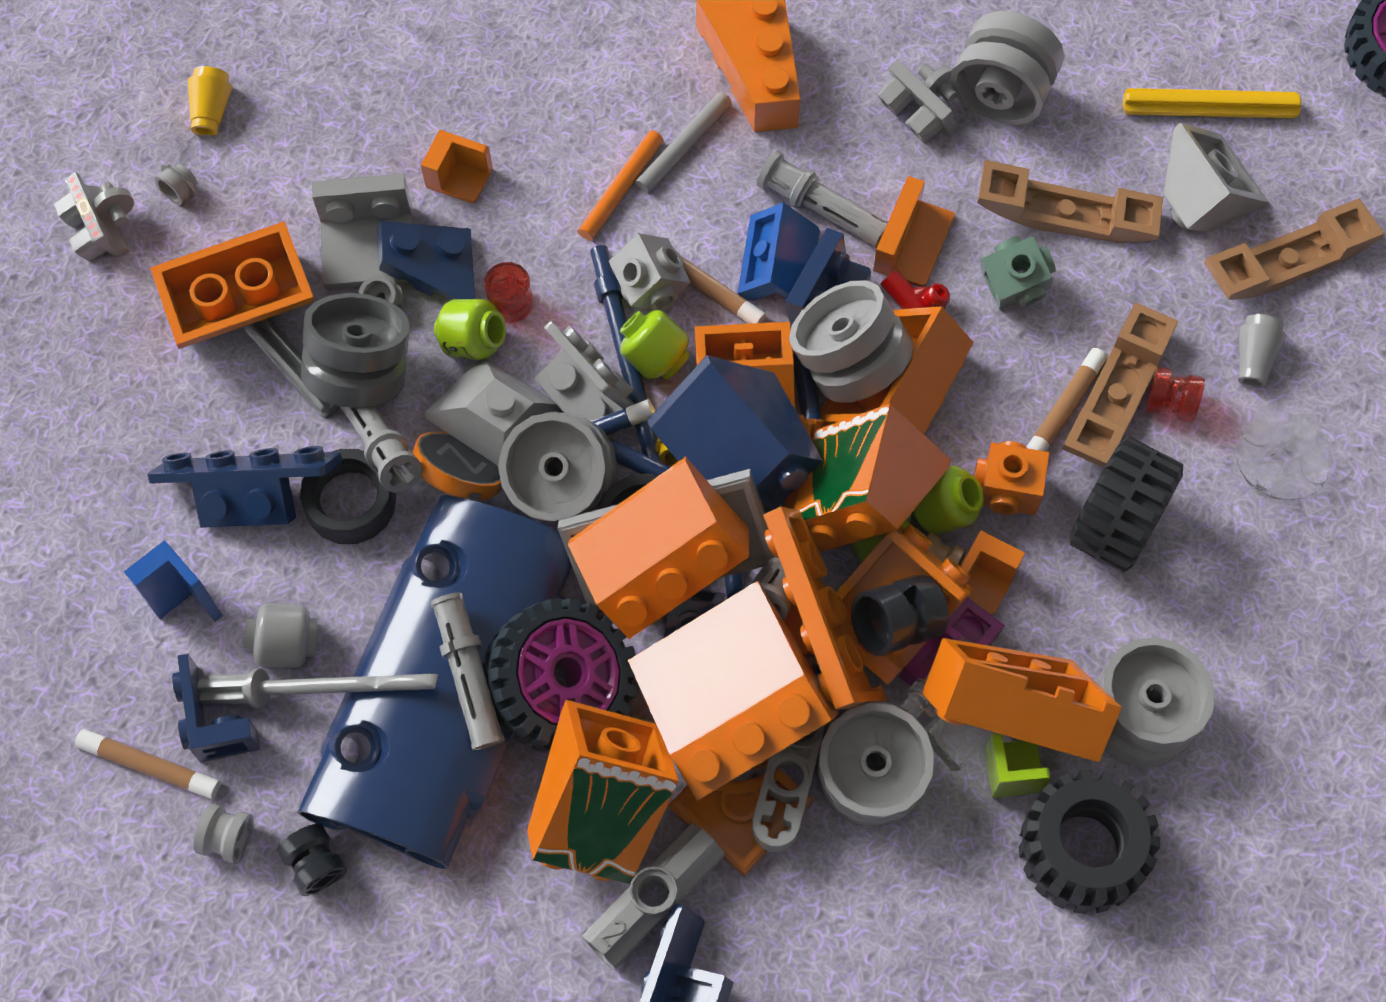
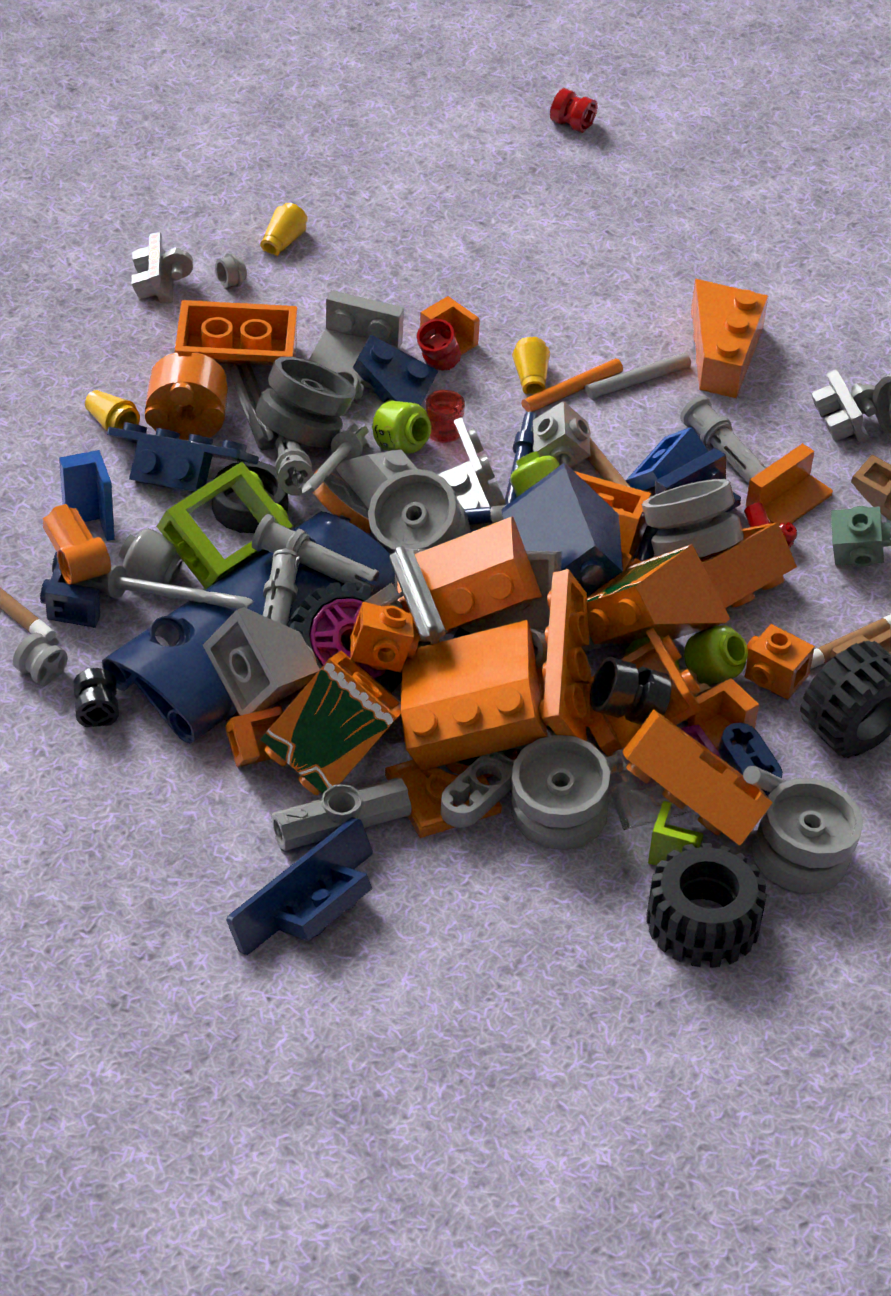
camera: 20 degrees right, 20 degrees down
(137, 443) = (111, 410): none -> yellow cone
(206, 686) = (77, 551): none -> orange piece
(218, 398) = (187, 395): none -> orange brick
(328, 612) = (191, 541): none -> lime window
(426, 387) = (344, 446): none -> light grey piece
(450, 576) = (274, 536): none -> light grey pin
(452, 189) = (439, 344): none -> red wheel
(493, 766) = (259, 660): none -> light grey slope
(507, 837) = (245, 735): none -> orange panel
(567, 178) = (531, 362): none -> yellow cone
(584, 615) = (386, 597): none -> light grey plate
(606, 666) = (383, 637): none -> orange brick
(621, 598) = (417, 595): none -> axle
(1038, 618) = (756, 753): none -> dark blue beam
(1094, 663) = (762, 778): none -> light grey bar

